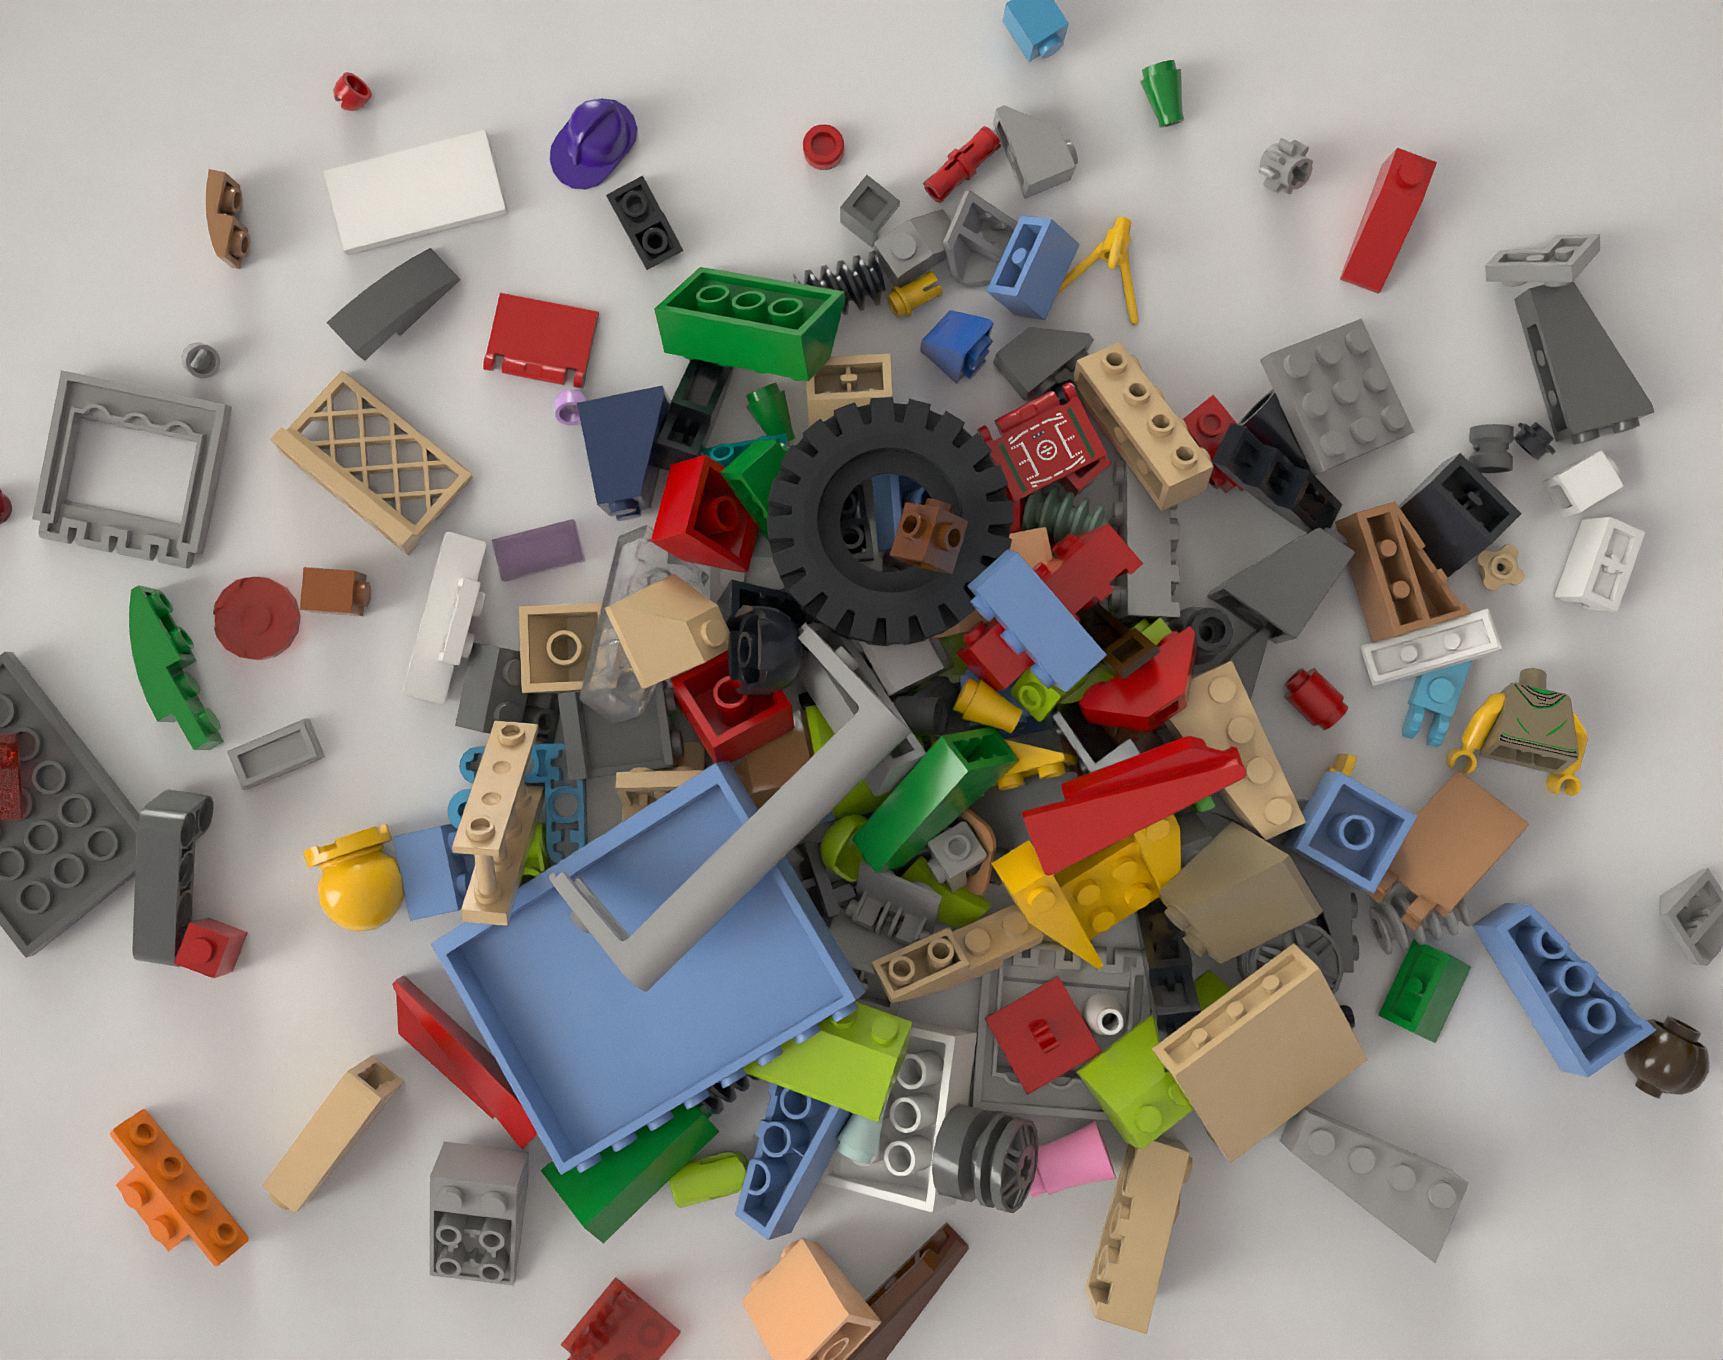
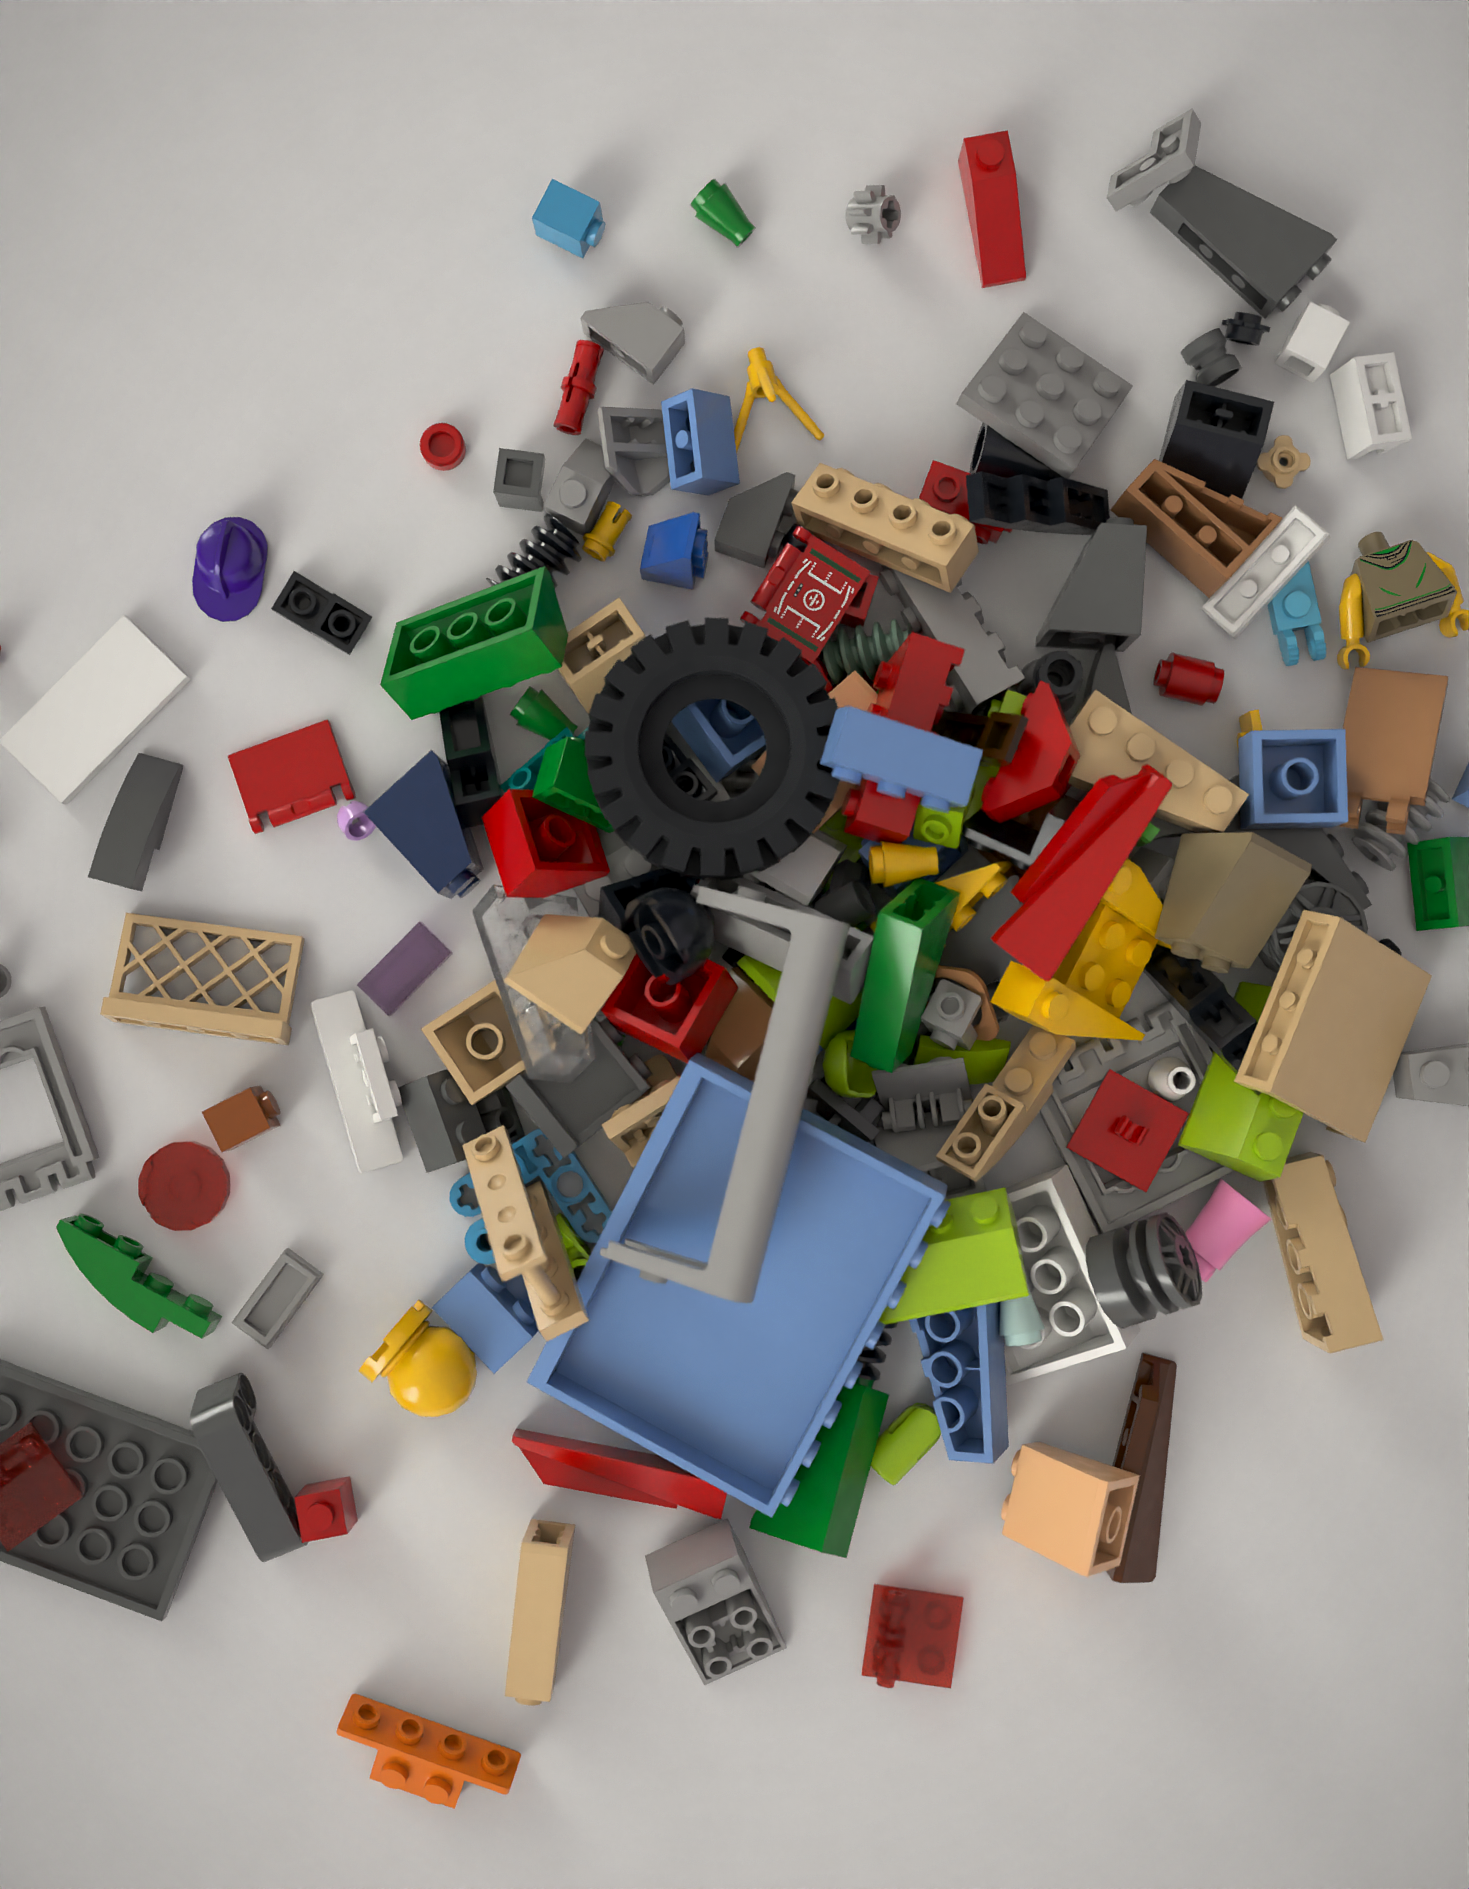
camera: 30 degrees left, 0 degrees up
(929, 536) = (760, 739): reddish brown brick -> none

